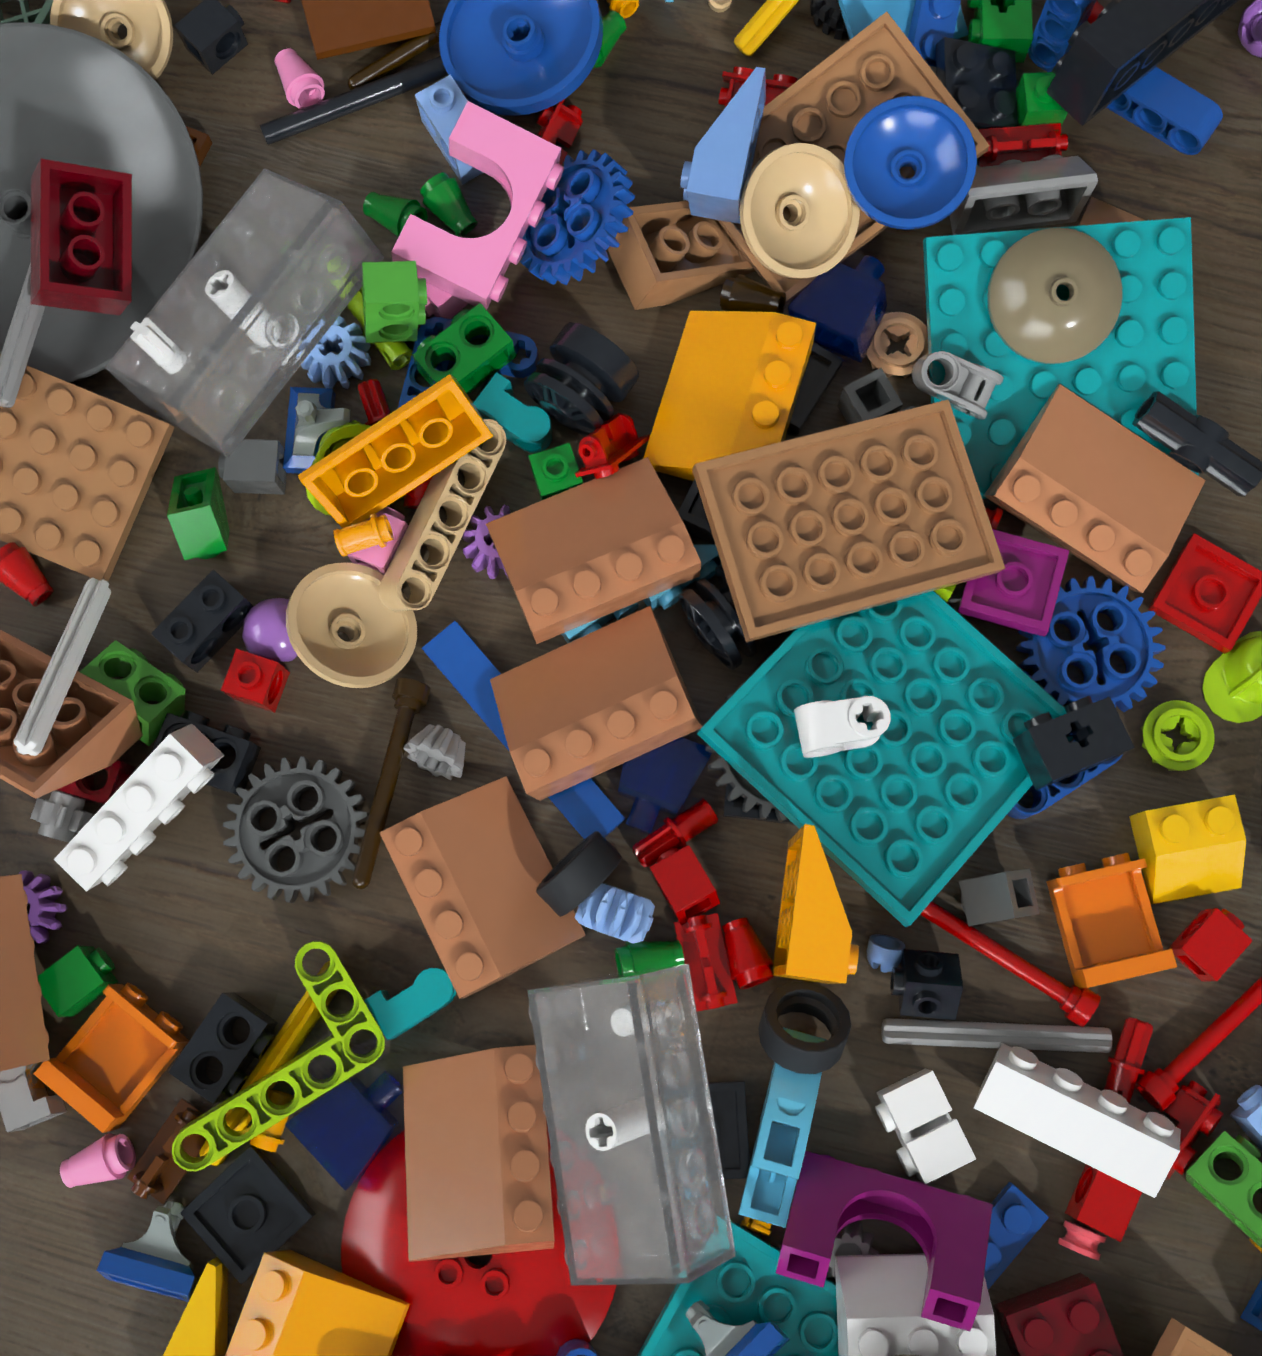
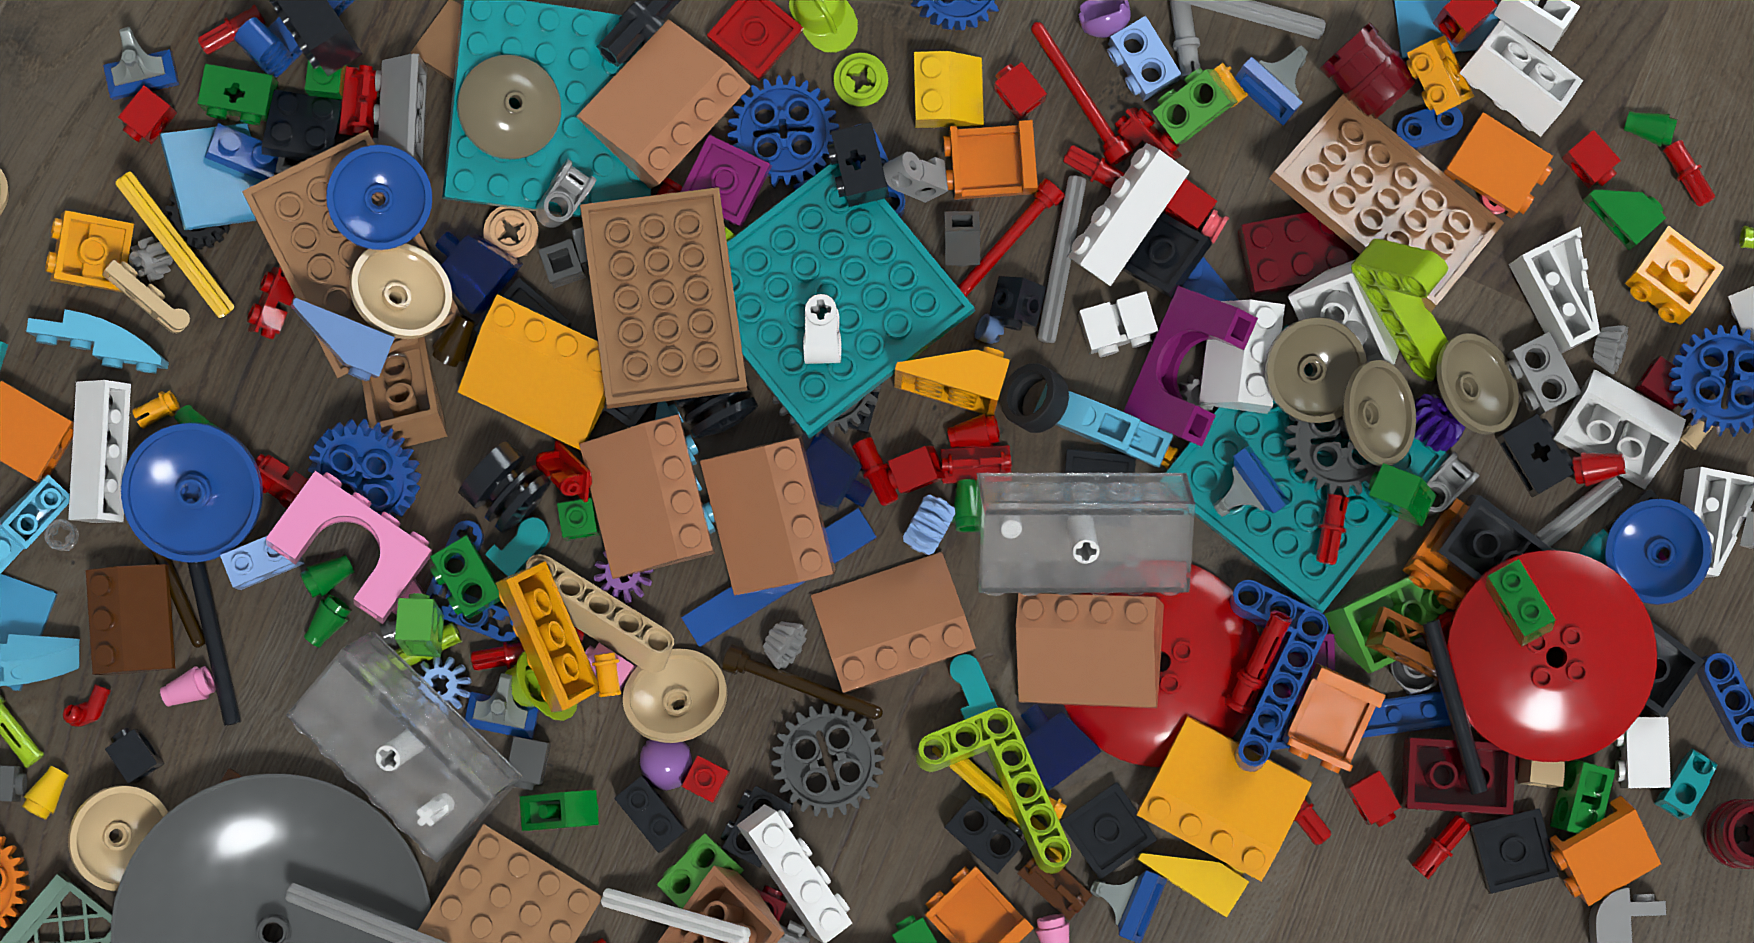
camera: 85 degrees left, 5 degrees up
(81, 237) = (325, 869): dark red brick -> none
(579, 874) = (896, 546): black tyre -> none
(1030, 1182) = (1167, 255): none -> black plate
(1069, 821) = (915, 176): none -> light grey leg

